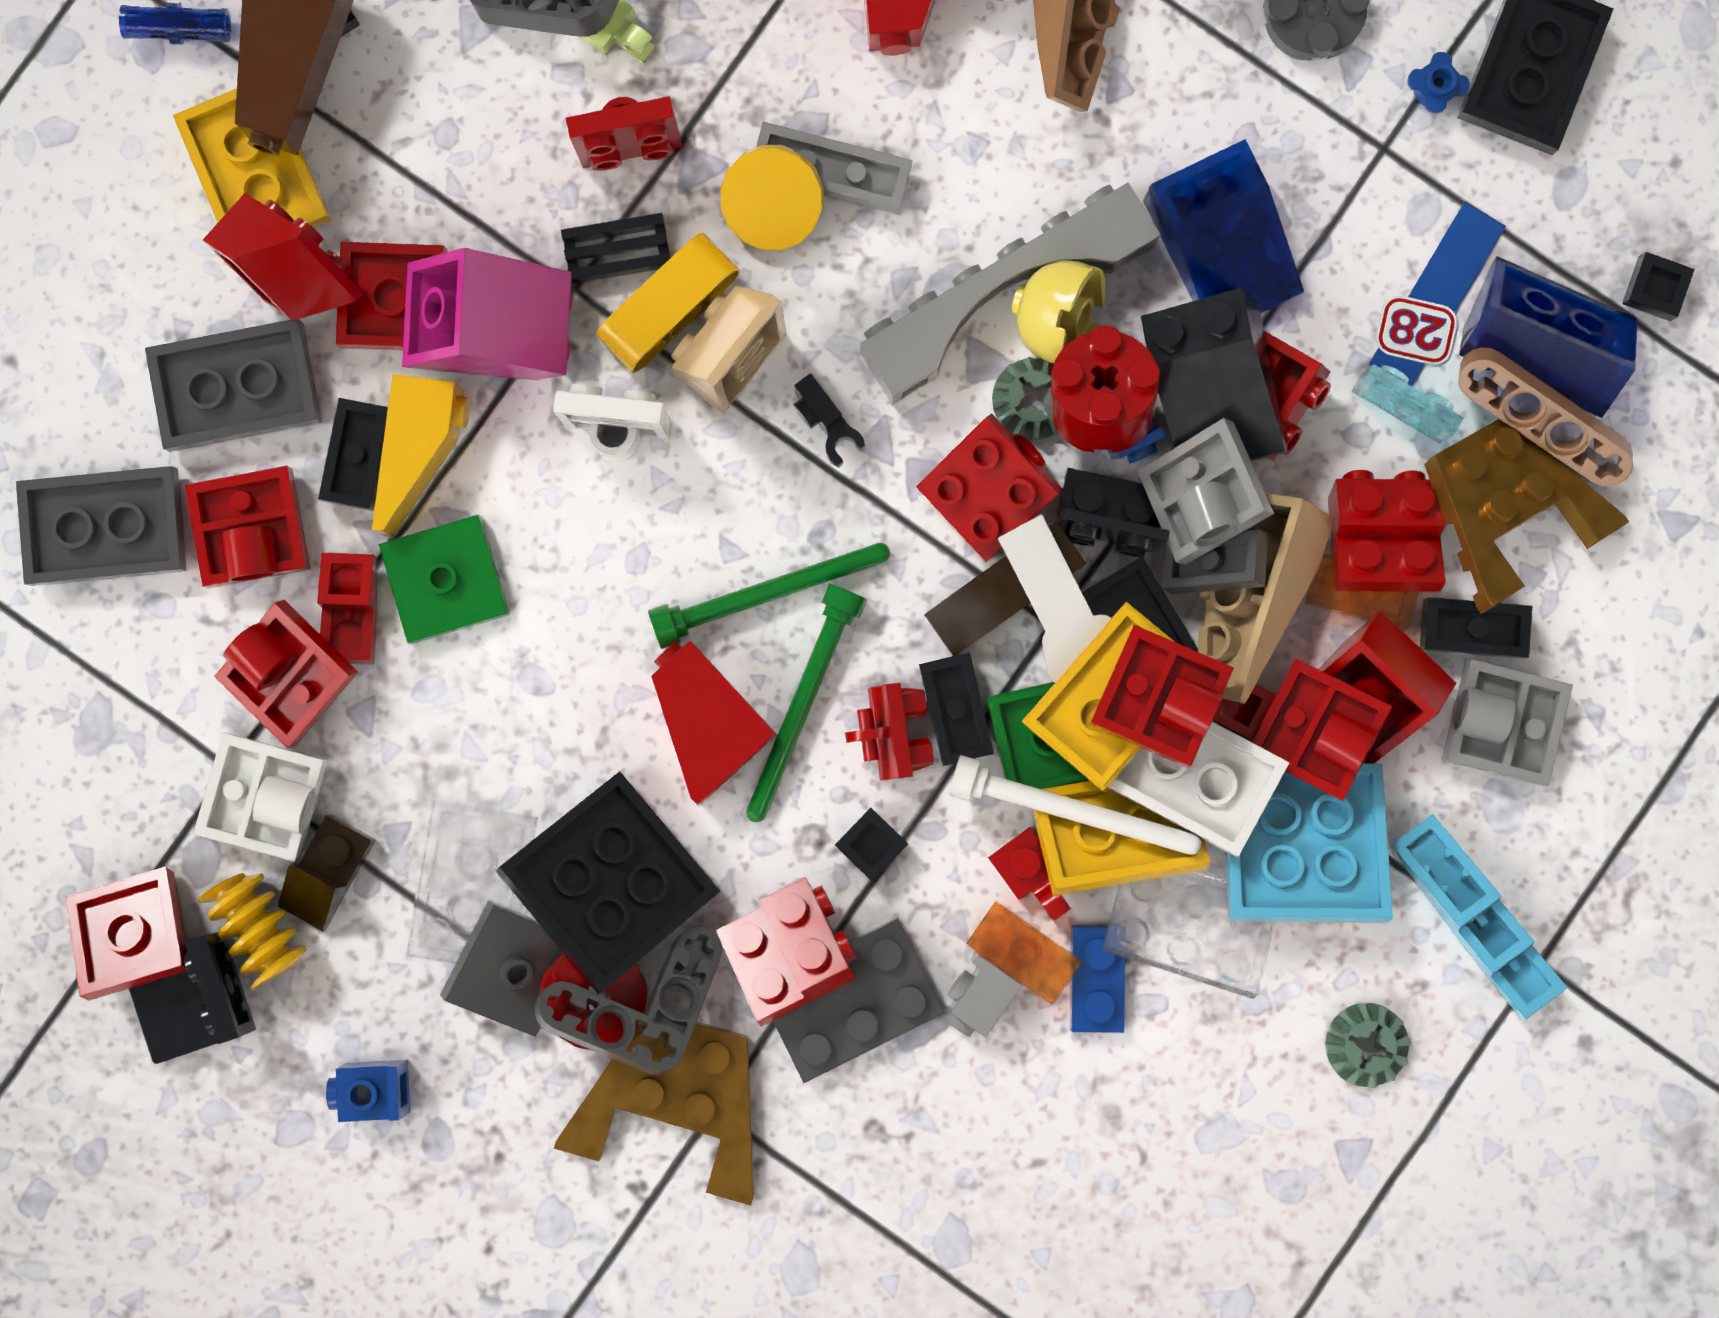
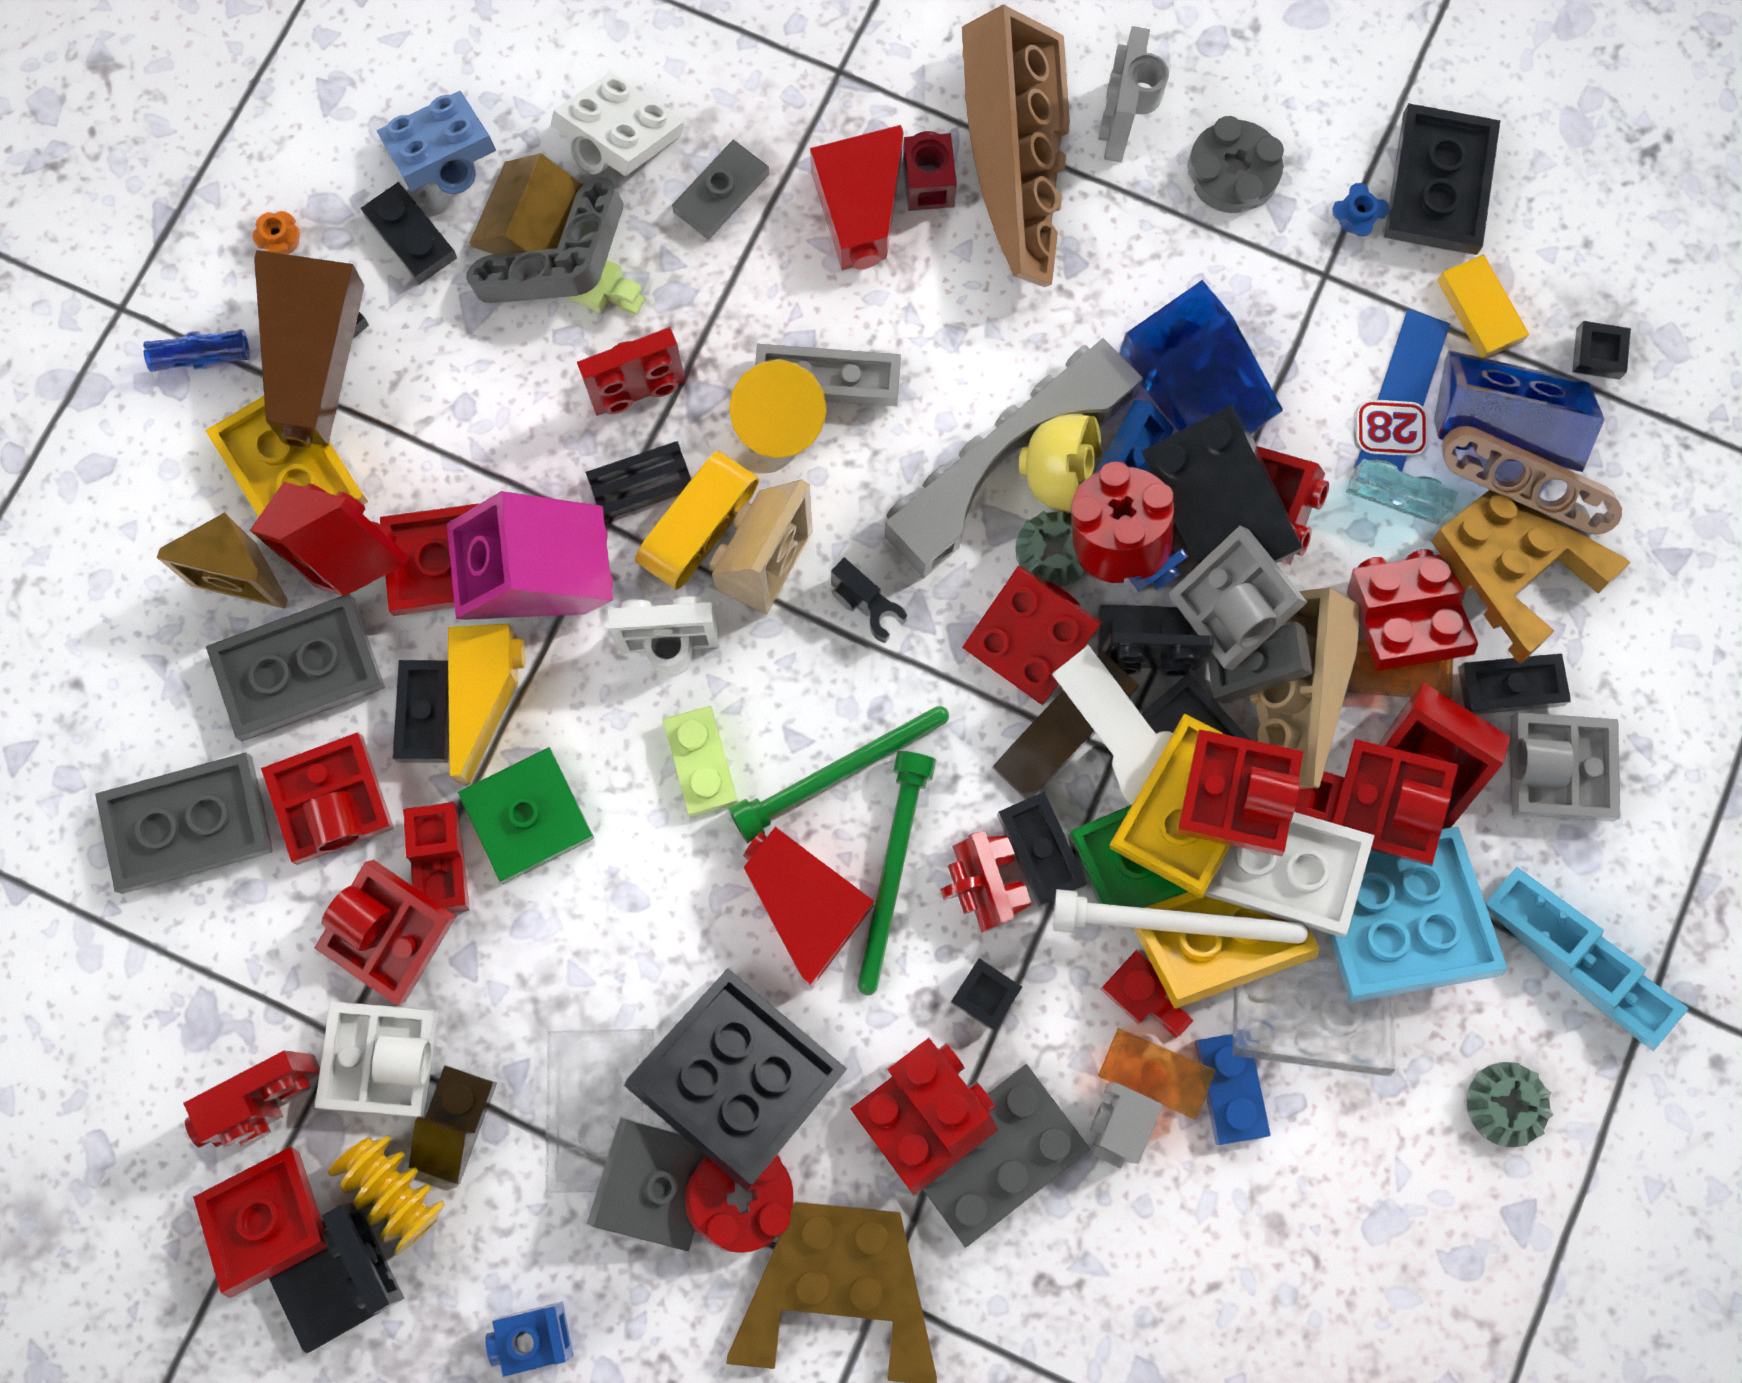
camera: 10 degrees left, 10 degrees down
(127, 820) = (246, 1102): none -> red plate
(176, 261) = (223, 561): none -> pearl gold slope
(628, 556) = (700, 761): none -> yellowish green plate
(657, 1018) = (807, 1209): dark grey beam -> none
(1146, 291) = (1138, 431): none -> blue plate
(1544, 214) = (1482, 306): none -> yellow tile

